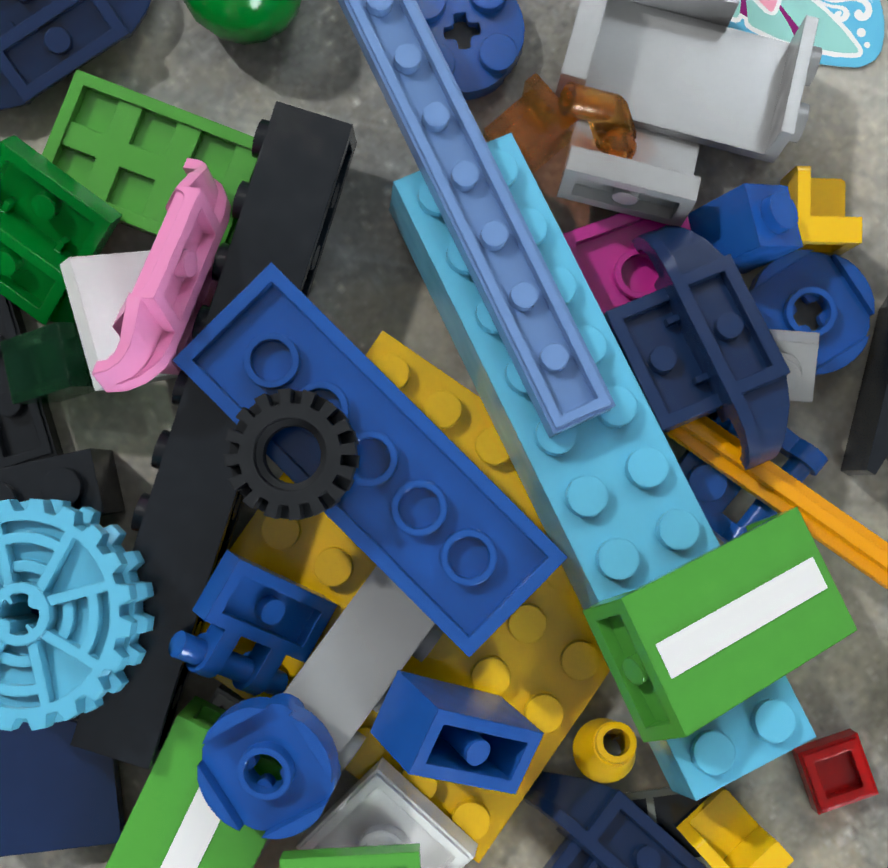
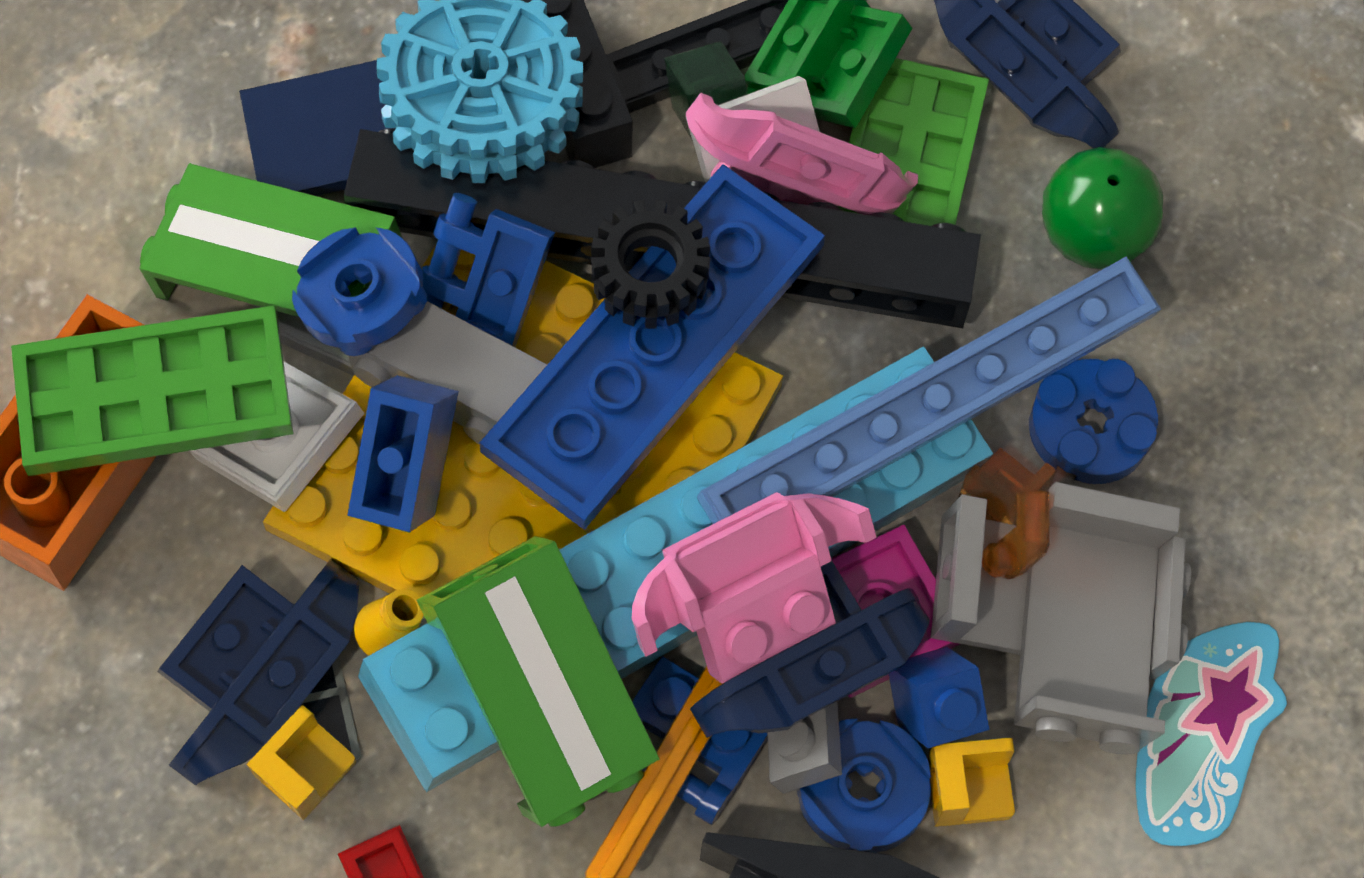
camera: 75 degrees right, 20 degrees down
(654, 397) = (750, 580): none -> bright pink plate

